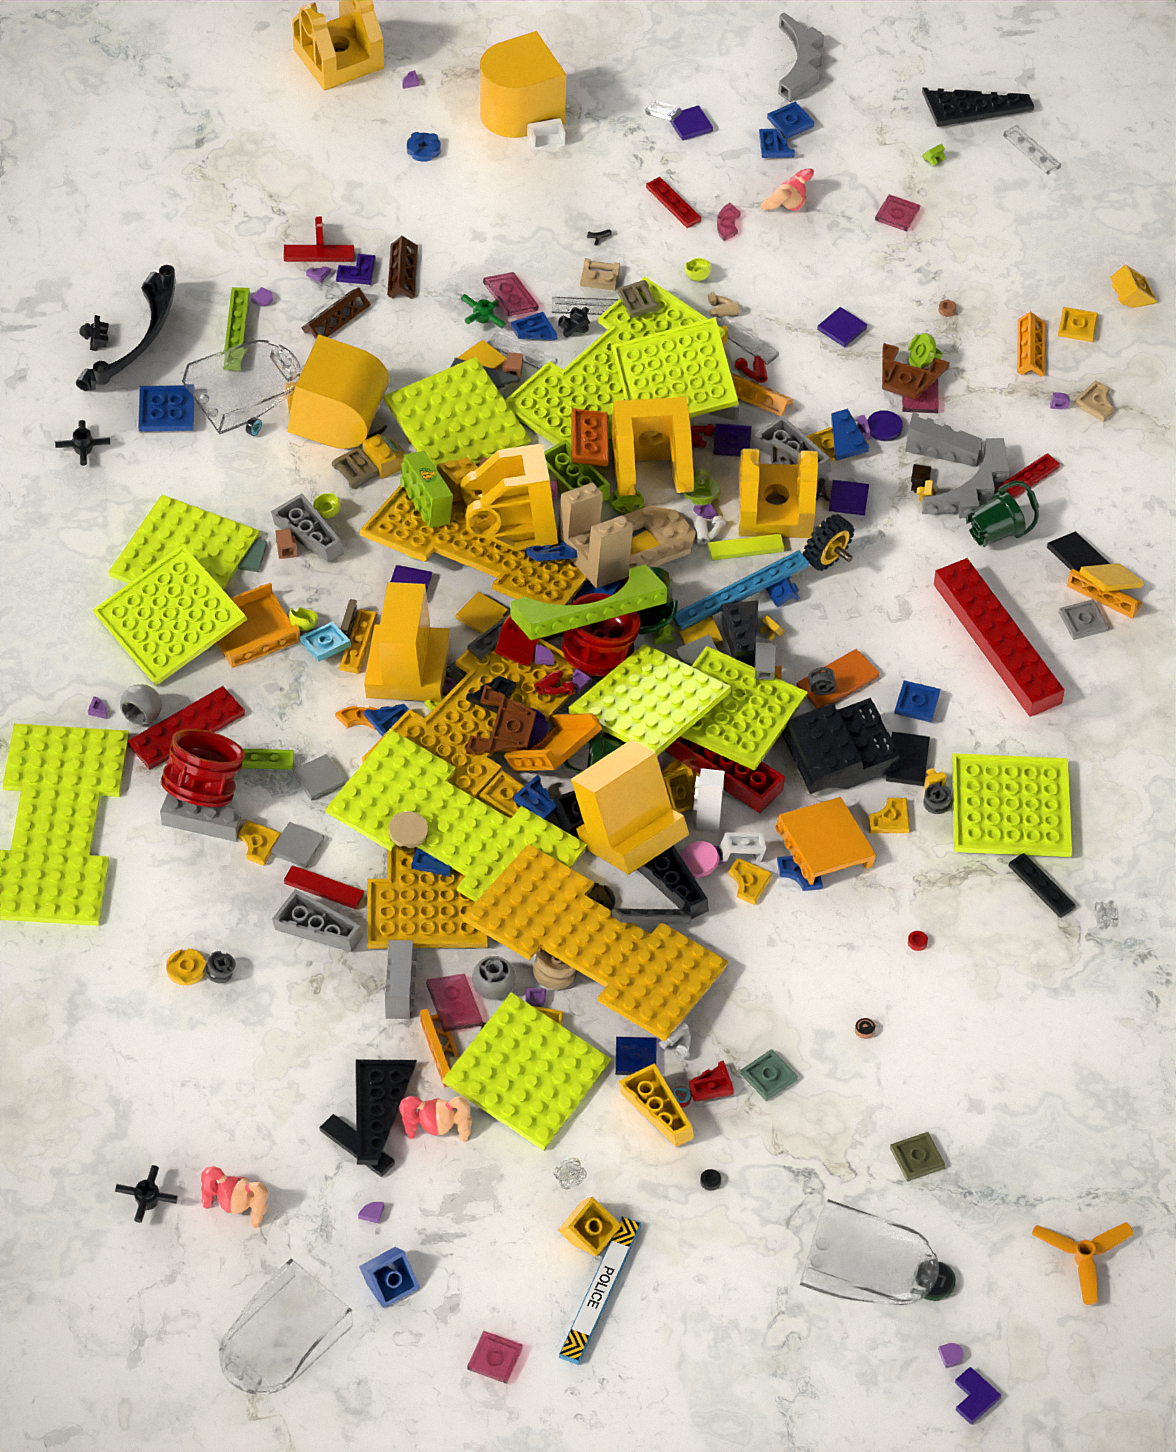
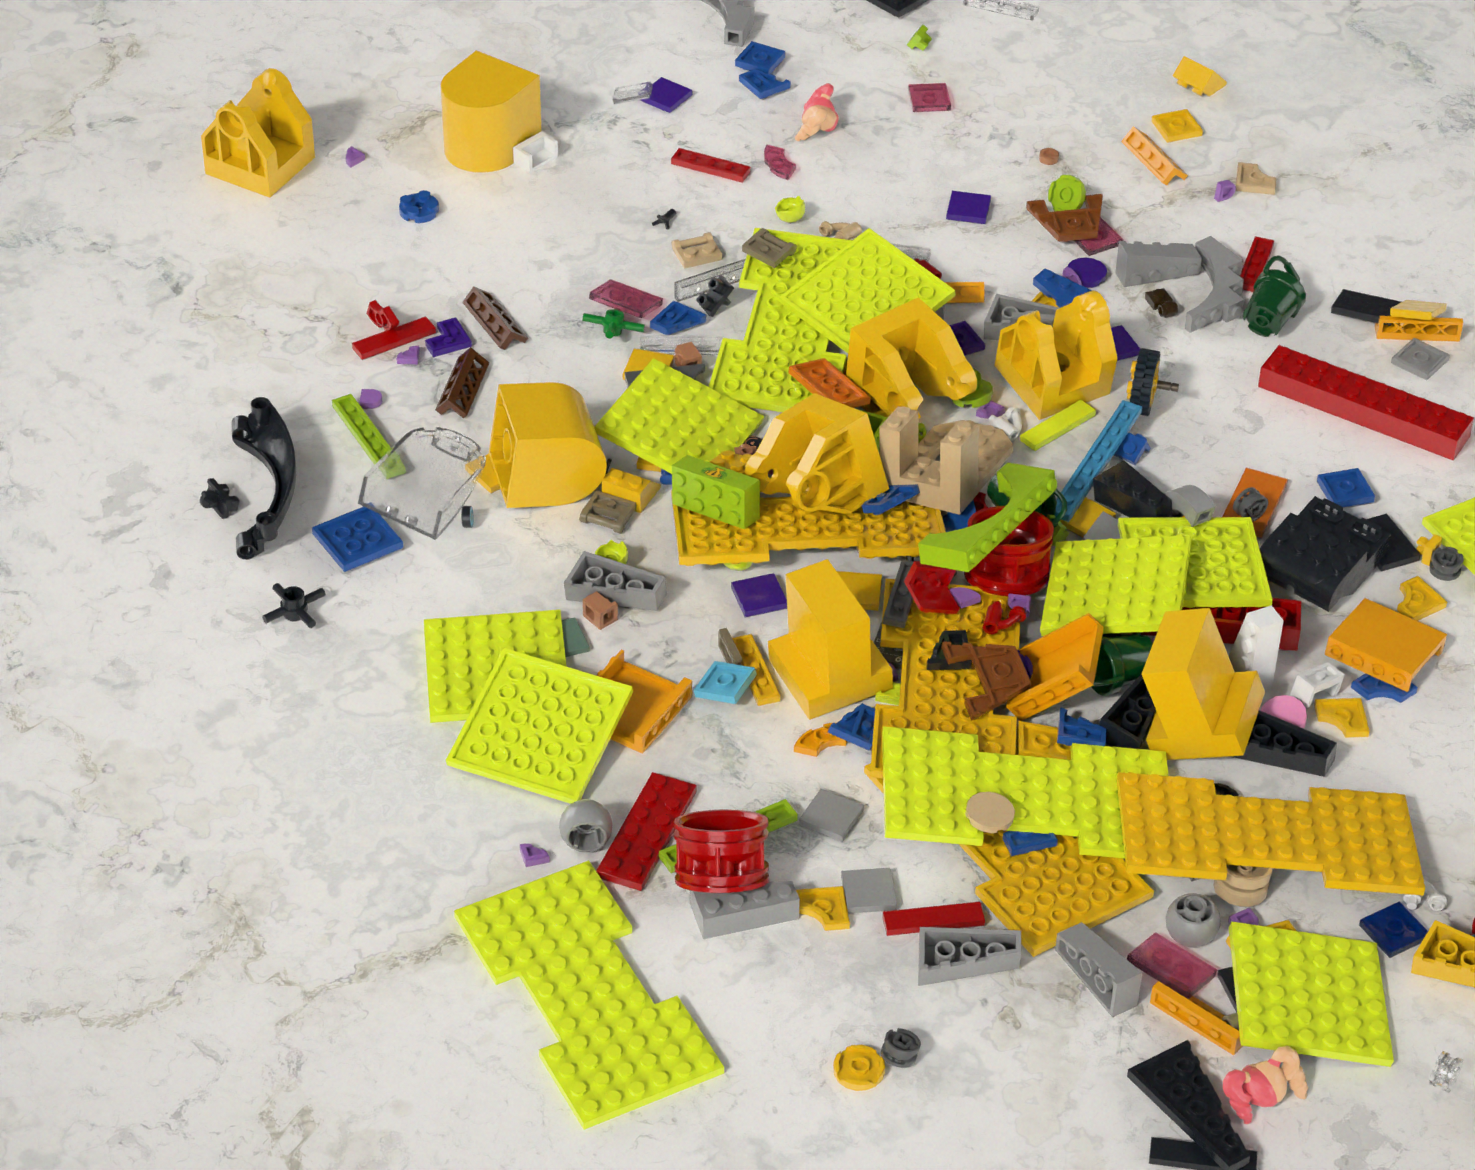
camera: 30 degrees left, 10 degrees down
(304, 618) = (682, 668): neon yellow hair -> none
(650, 915) = (1295, 785): dark grey tile -> none
(772, 626) = (1155, 478): yellow tile -> none
(928, 490) = (1181, 310): yellow tile -> none

